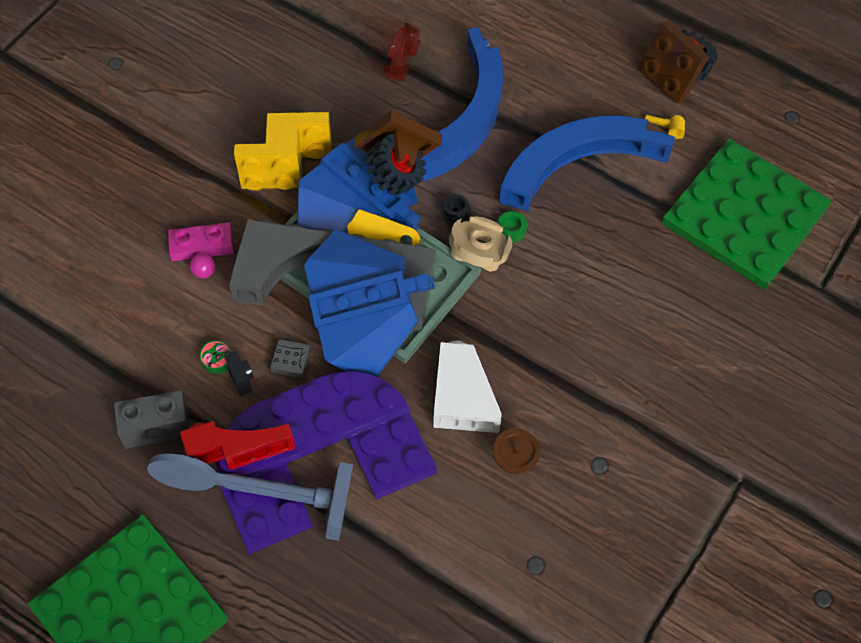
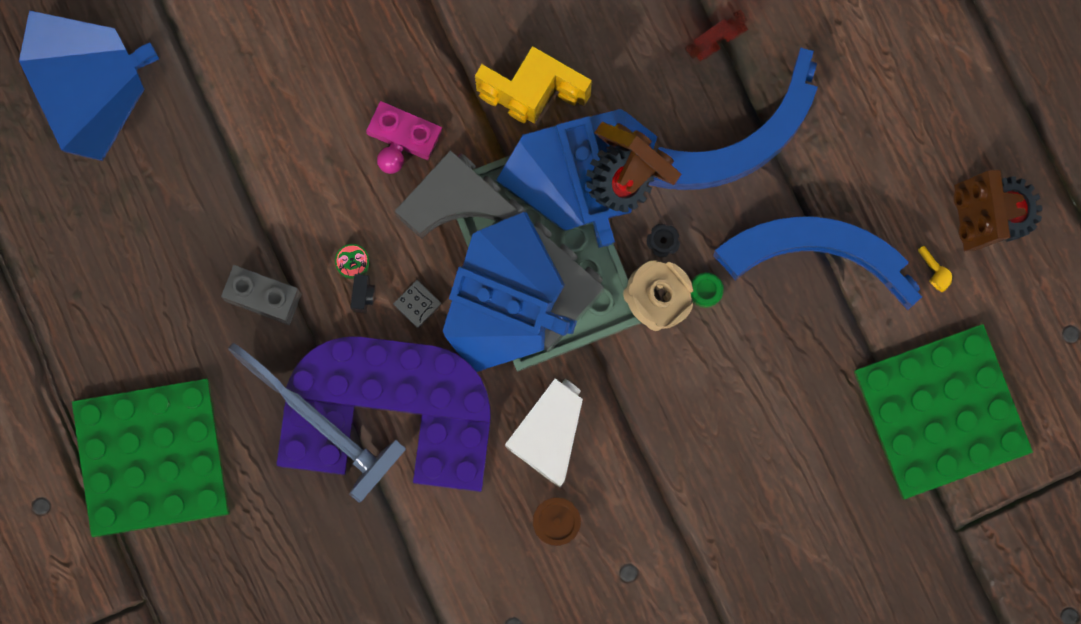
camera: 35 degrees right, 20 degrees up
(239, 448) = (290, 357): red slope -> none
(380, 228) = (569, 231): yellow piece -> none

